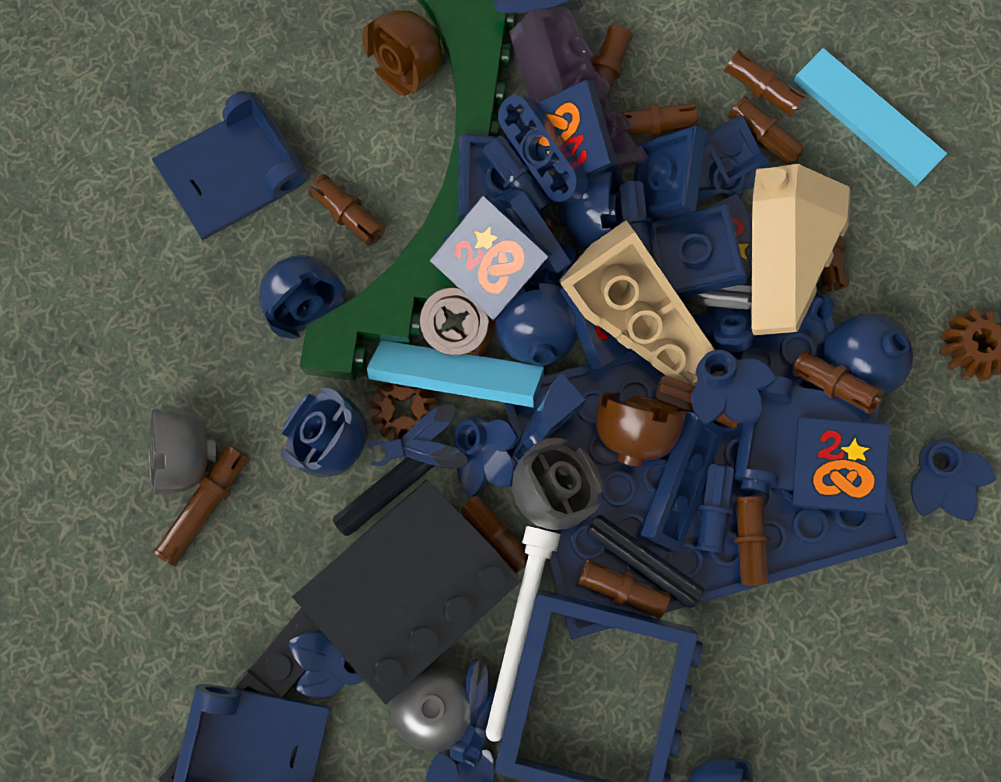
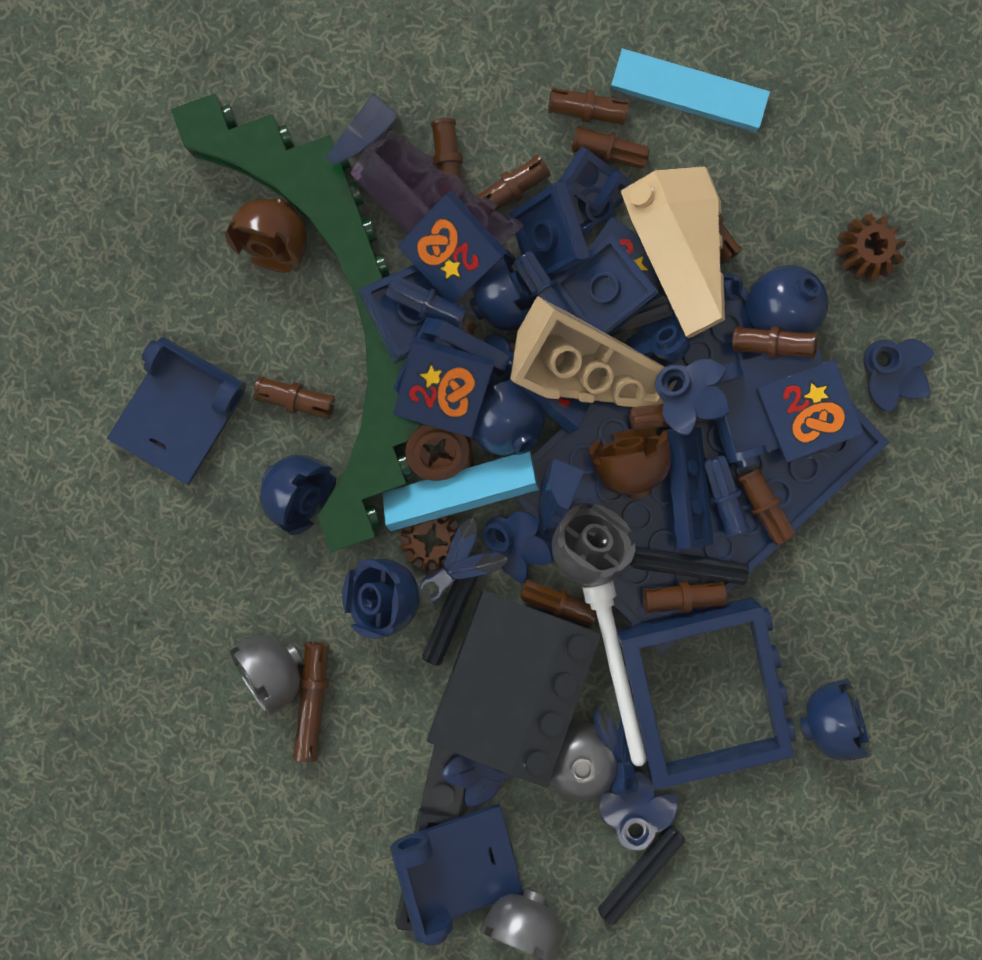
camera: 30 degrees left, 10 degrees up
(559, 156) = (452, 265): dark blue beam -> none

